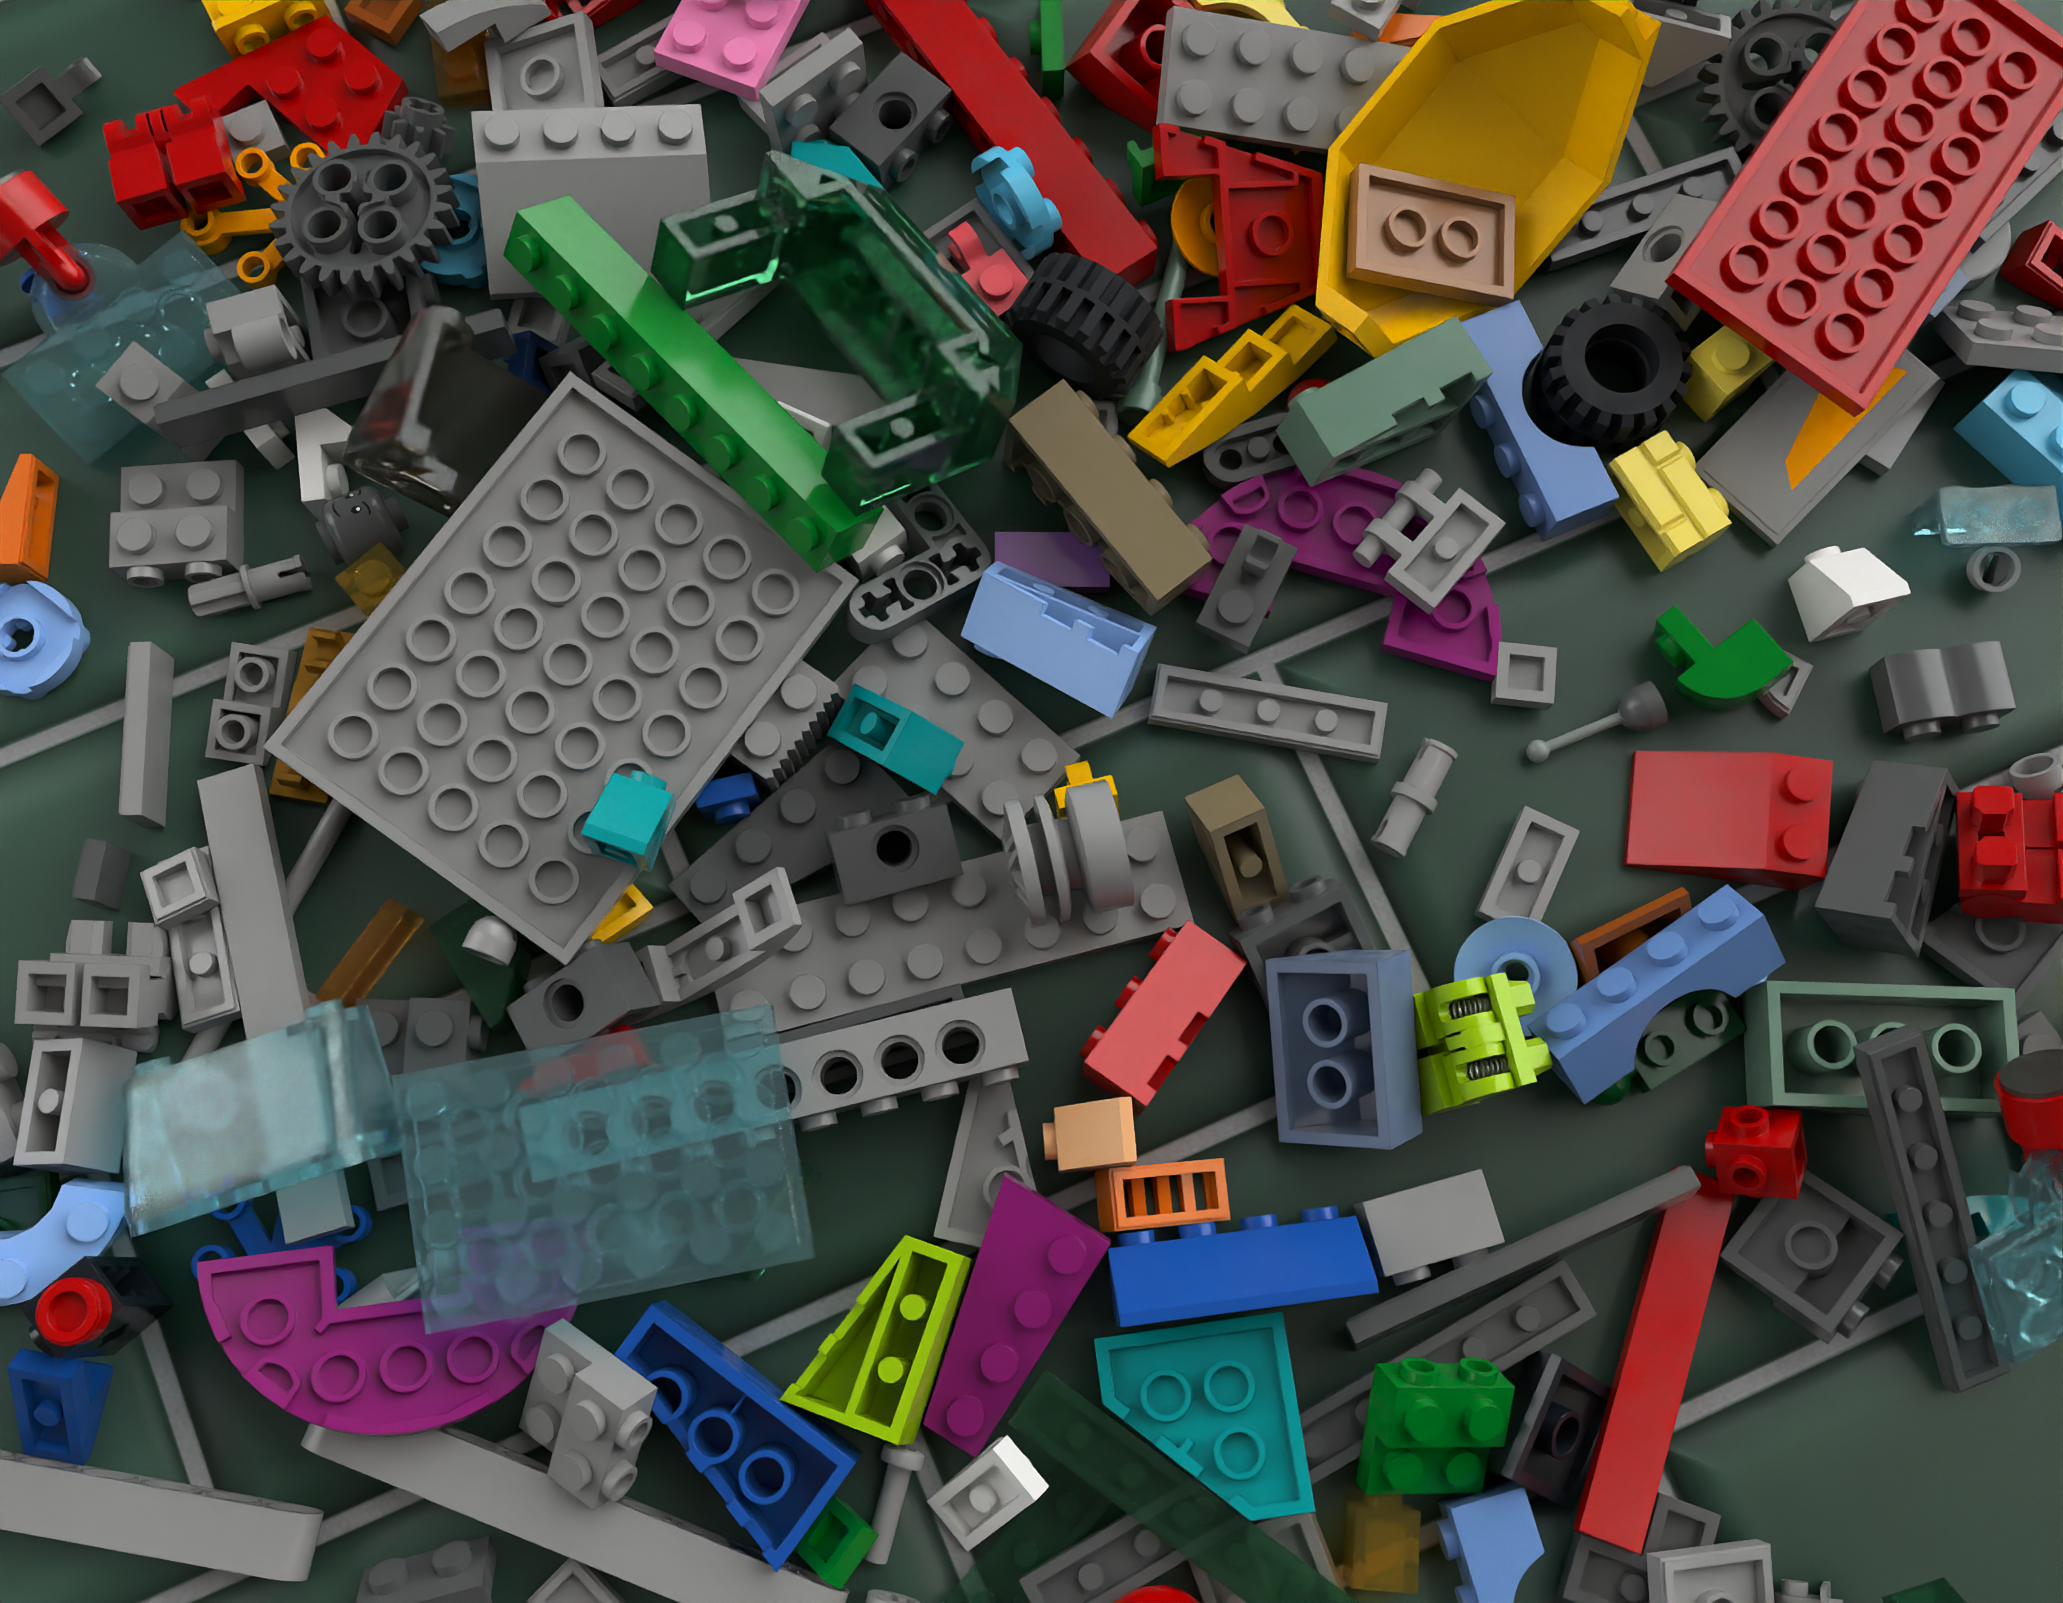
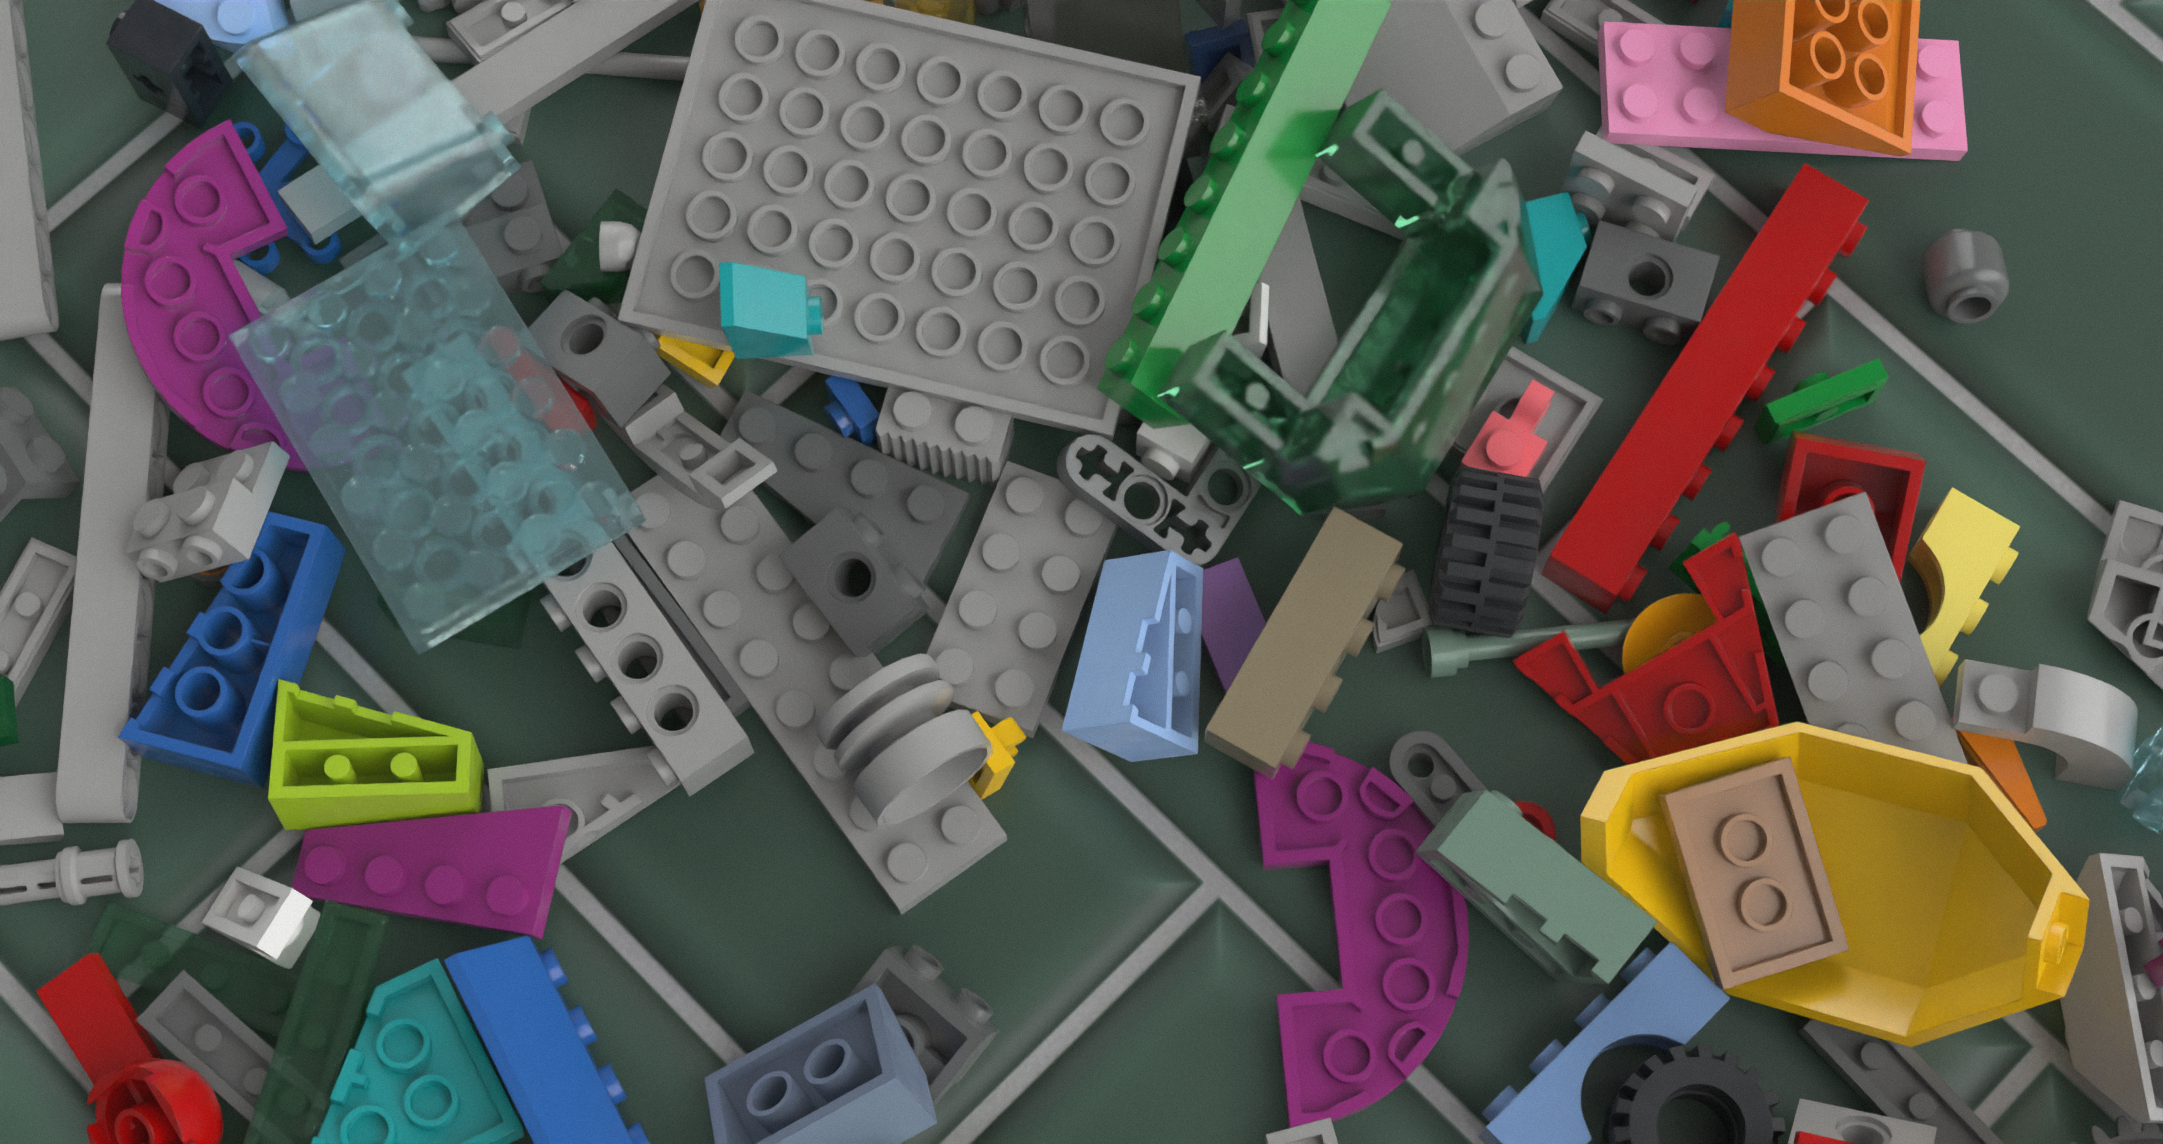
camera: 70 degrees right, 5 degrees down
(58, 1404) = (78, 70): blue slope -> none
(73, 1311) = (149, 36): red tile -> none
(371, 954) = (575, 154): clear orange tile -> none
(836, 1542) = (169, 792): green plate -> none
(896, 738) = (965, 538): teal slope -> none
(901, 1462) = (262, 826): light grey piece -> none
(1015, 200) = (1589, 449): medium azure plate -> none
(1091, 1136) = (638, 885): light nougat slope -> none
(1112, 1202) = (565, 945): orange slope -> none
(1160, 1015) = (781, 906): wedge -> none
(1226, 393) = (1481, 726): yellow slope -> none
(1238, 844) = (996, 921): dark tan slope -> none
(1245, 588) = (1275, 827): dark grey plate -> none
(1268, 713) = (1158, 908): light grey tile -> none
(1414, 798) = (1122, 1089): light grey pin -> none
(1441, 552) = (1400, 1014): light grey plate -> none

